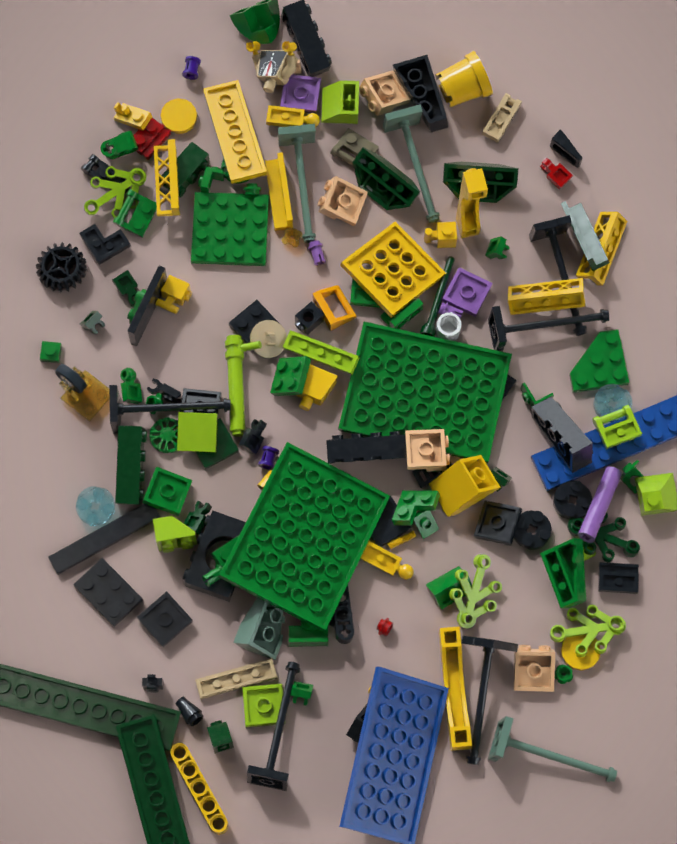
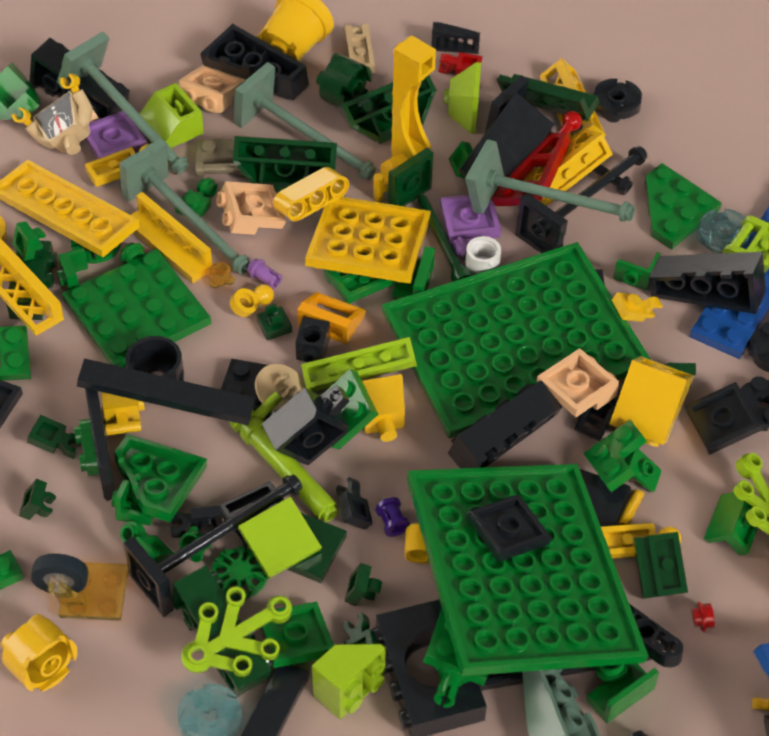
camera: 35 degrees left, 20 degrees down
(33, 415) = (38, 653): none -> yellow brick
(130, 473) = (233, 636): none -> lime plant
(139, 360) = (127, 507): none -> green bracket
(164, 349) = (158, 475): none -> green plate
(192, 148) = (27, 240): none -> green tile
(196, 304) = (165, 391): none -> black tile
(204, 269) = (156, 354): none -> black piece
(221, 487) = (361, 585): none -> dark green tile
(257, 375) = (308, 424): none -> black hinge
(299, 290) = (274, 322): none -> dark green tile
(306, 266) = (262, 295): none -> yellow plate
(308, 36) = (86, 60): none -> sand green tile
(312, 511) = (508, 528): none -> black tile
(315, 175) = (199, 201): none -> green plate
(380, 216) = (311, 194): none -> yellow beam
(384, 584) = (660, 565): none -> dark green plate
(447, 245) = (410, 179): none -> dark green tile
(465, 143) = (343, 80): none -> dark green brick
(487, 277) = (488, 174): none -> sand green tile
(502, 296) = (538, 158): none -> red plate
(508, 419) = (633, 308): none -> yellow plate
(523, 259) = (517, 133): none -> black tile
(533, 202) = (463, 97): none -> lime slope
(628, 272) = (618, 109): none -> black plate

